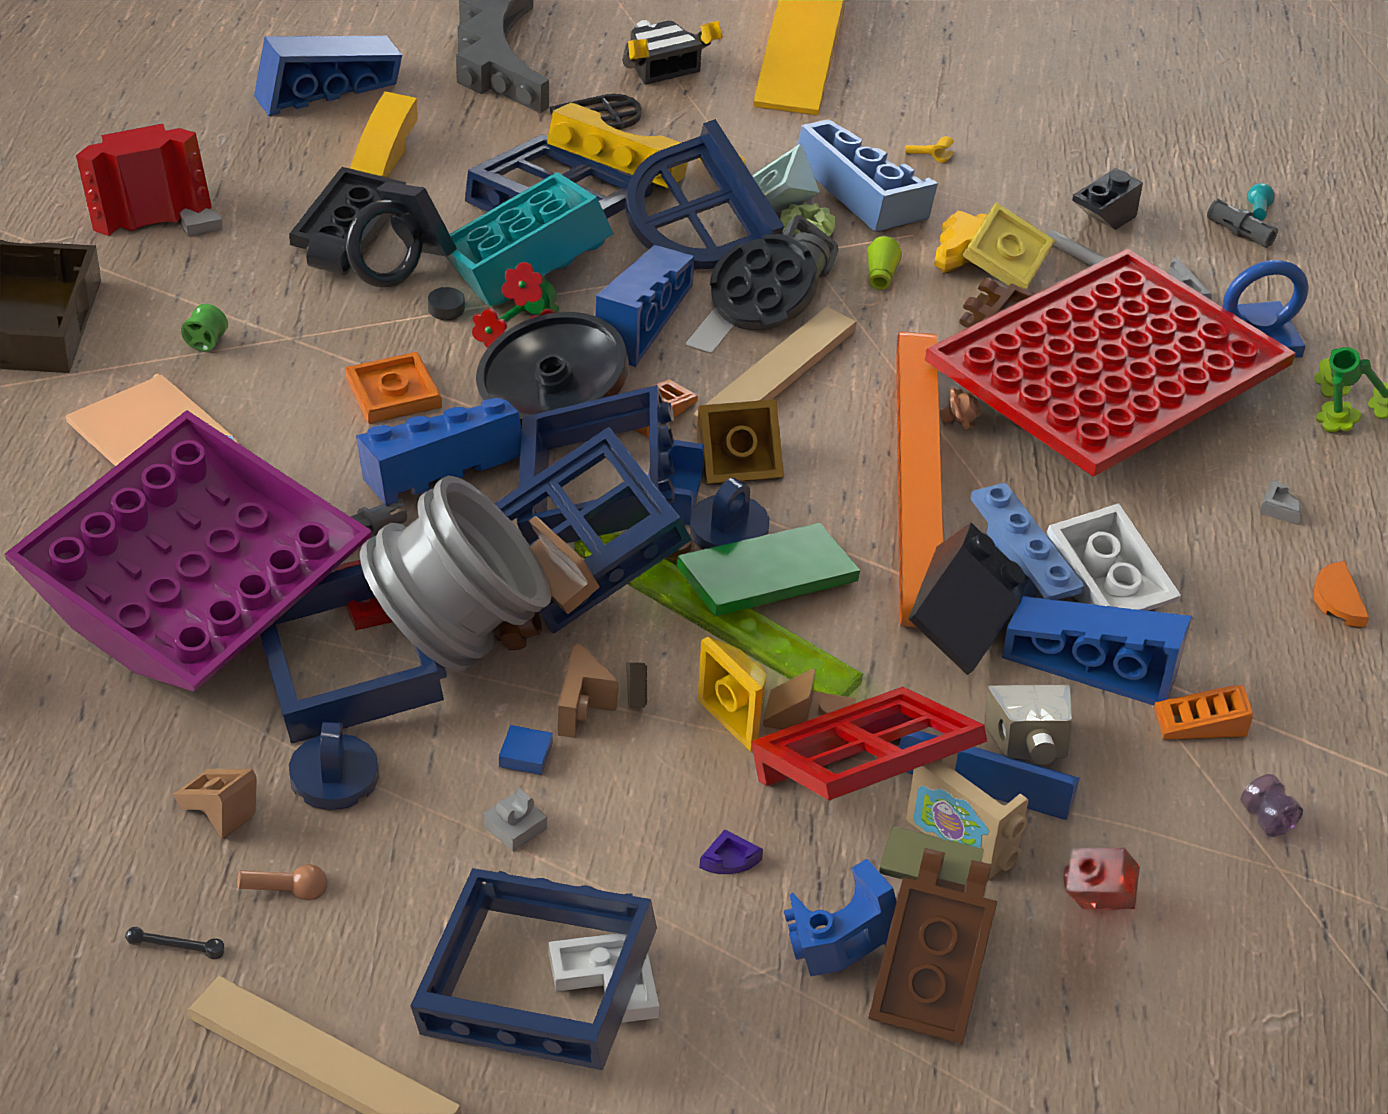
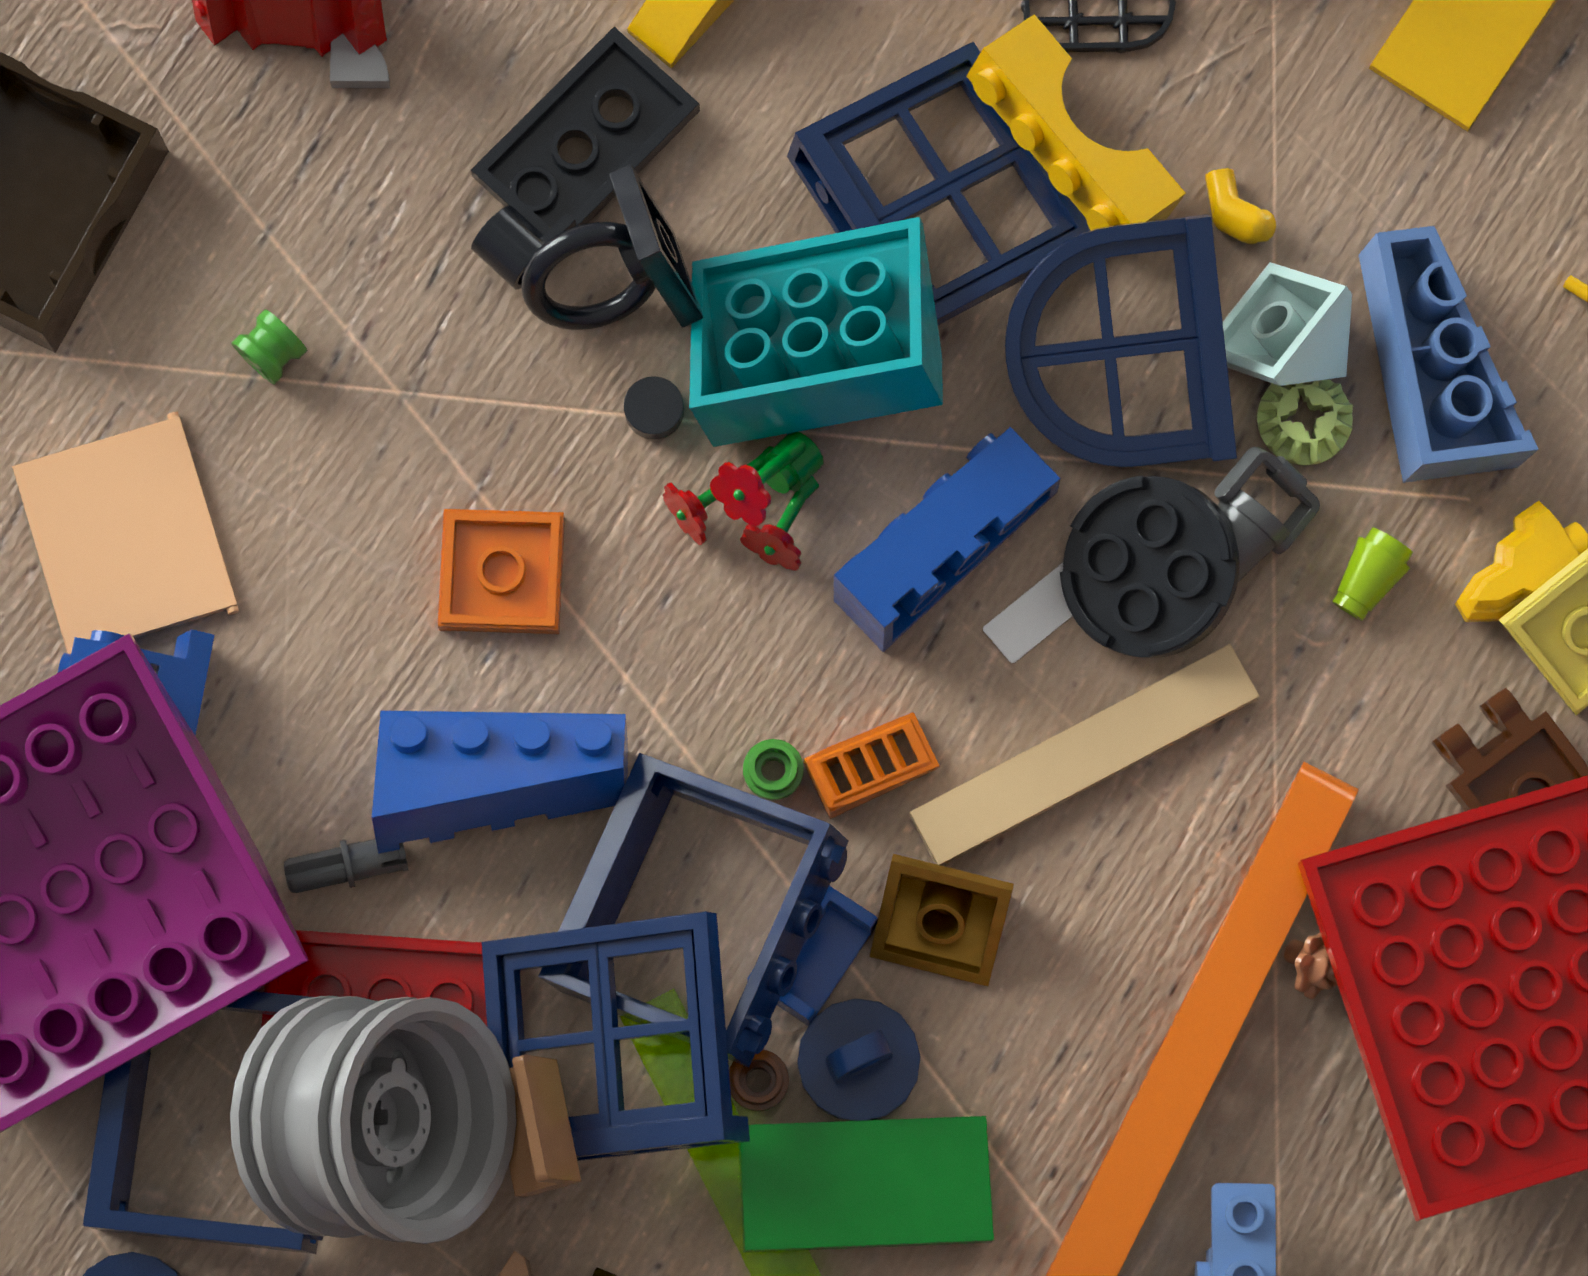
camera: 30 degrees right, 35 degrees up
(554, 363) = (730, 659): black dish -> none

